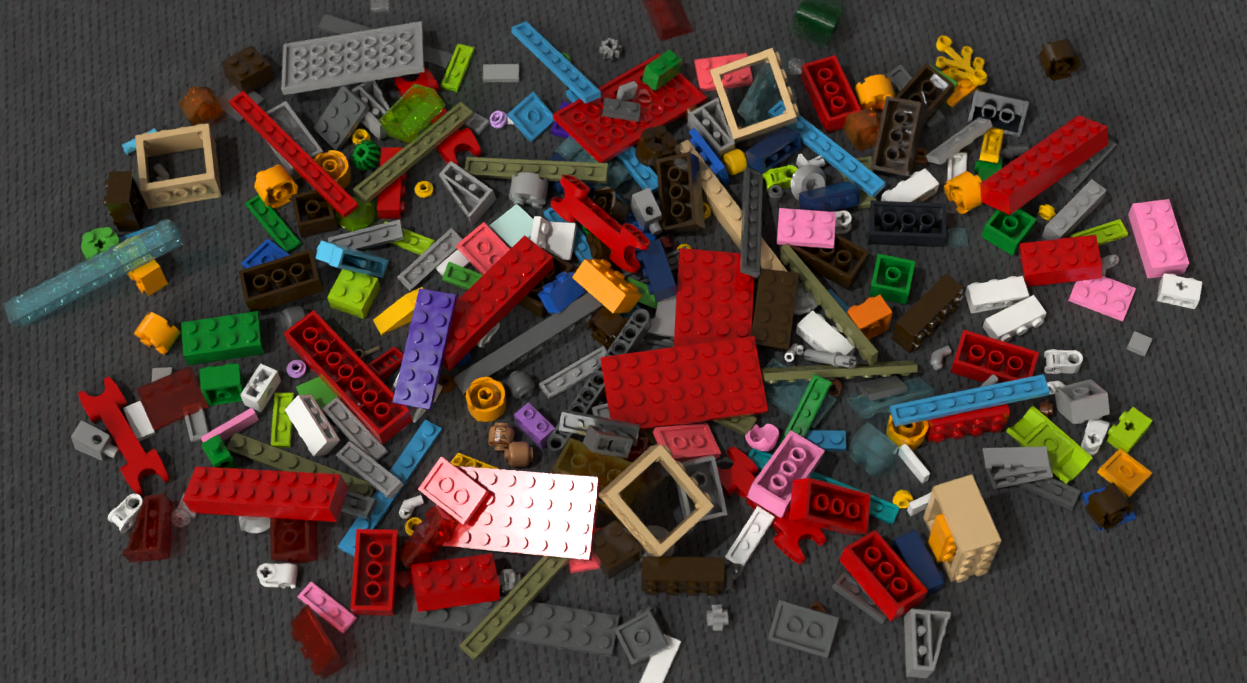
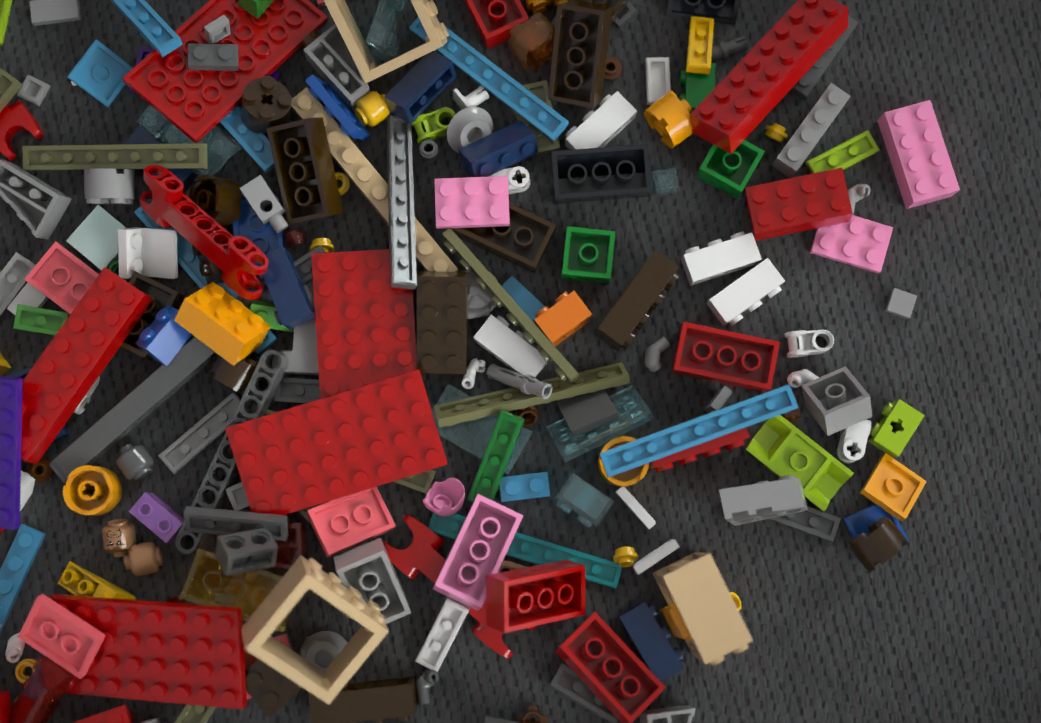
camera: 10 degrees left, 20 degrees up
(498, 119) = (58, 81): lavender plate -> none
(959, 140) = (658, 44): light grey plate -> none
(1179, 291) = (935, 229): white brick -> none

